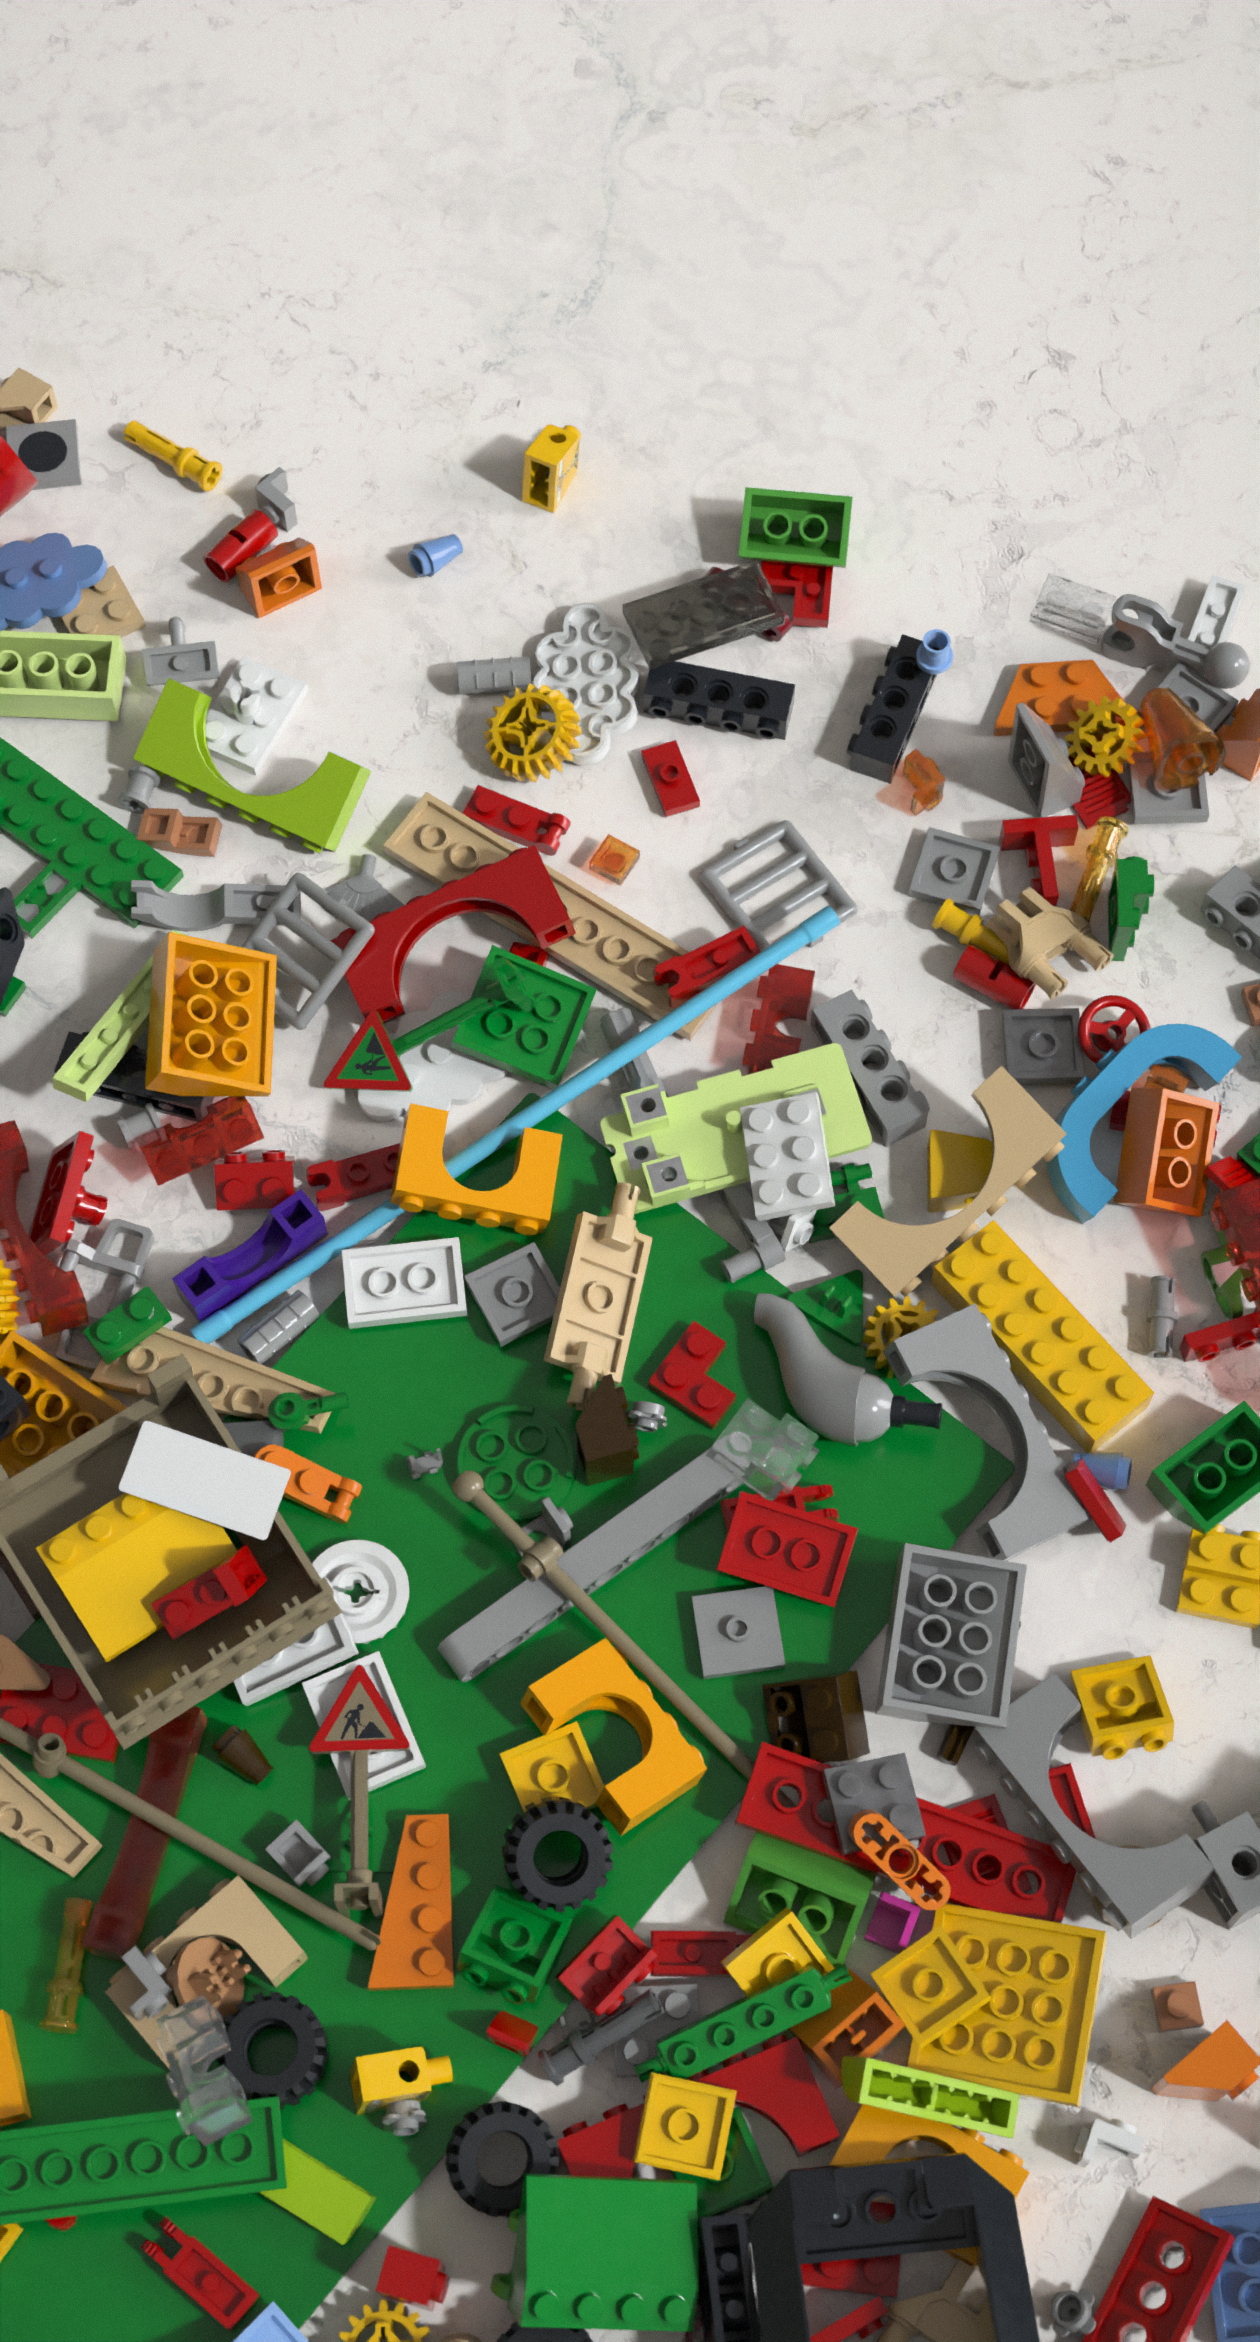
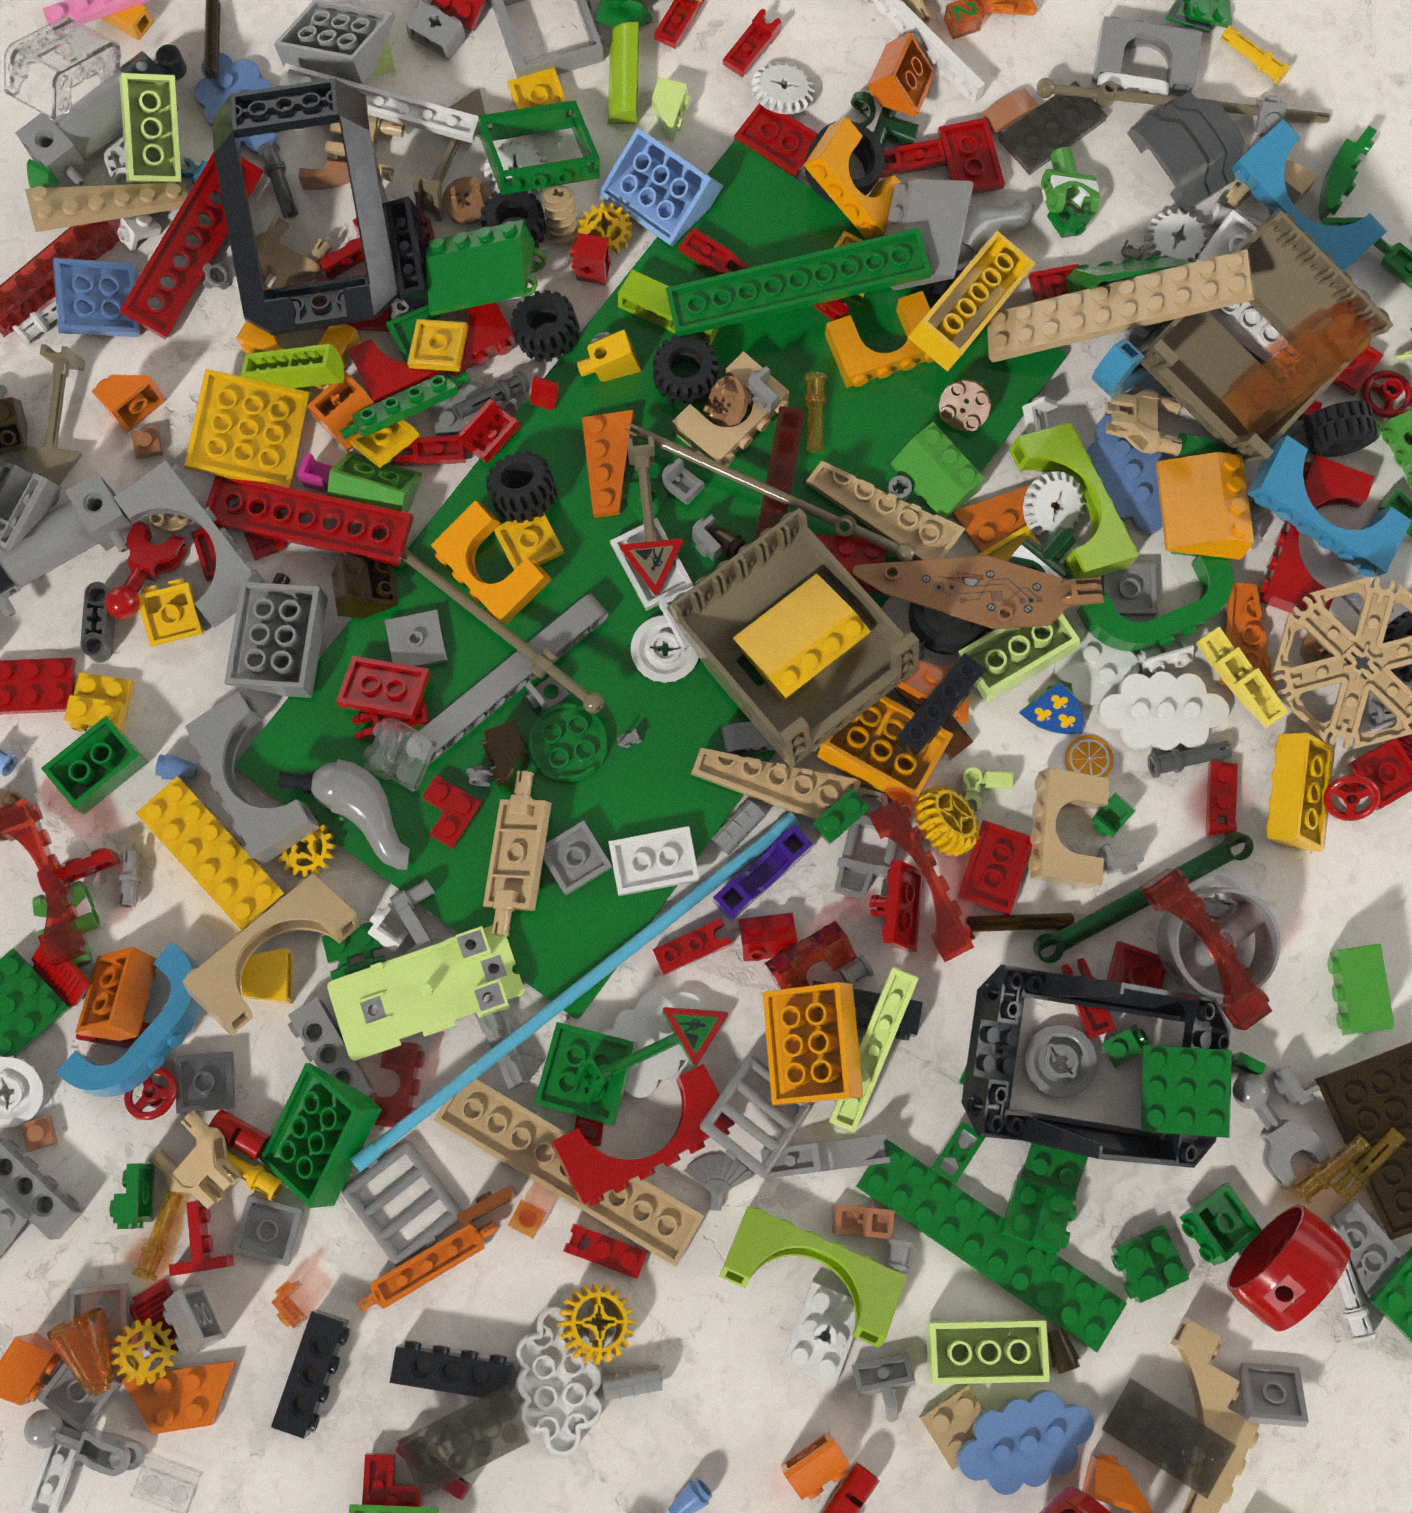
camera: 175 degrees right, 10 degrees up
(204, 1480) = (765, 678): white sticker -> none
(210, 1592) = (741, 613): red bracket -> none
(211, 2101) = (732, 353): clear arch -> none
(274, 1749) = (705, 542): none -> light grey bracket
(290, 1411) = (719, 754): green plate -> none
(310, 1483) = (706, 713): orange plate -> none
(425, 1184) = (575, 924): light orange arch -> none
(513, 1946) = (548, 437): green plate -> none
(662, 867) = (487, 1203): none -> dark orange plate
(670, 778) = (488, 1298): red plate -> none
(704, 965) = (448, 1124): red plate -> none
(745, 815) = (427, 1266): none -> orange plate
(787, 1156) = (386, 962): white plate -> none
(835, 1305) = (355, 872): green piece -> none
(876, 1785) = (326, 531): flat silver plate -> none
(883, 960) = (318, 1135): none -> green slope
(928, 1872) = (326, 510): orange beam -> none
(931, 1986) = (292, 433): yellow plate -> none
(935, 660) = (285, 1412): light blue piece -> none
(1095, 1500) = (180, 741): red tile -> none
(1117, 2137) = (186, 365): white bracket -> none
(1162, 1788) = (145, 562): none -> red piece
(1166, 1078) = (110, 1053): clear orange plate -> none
(1222, 1707) = (90, 633): none -> dark grey beam

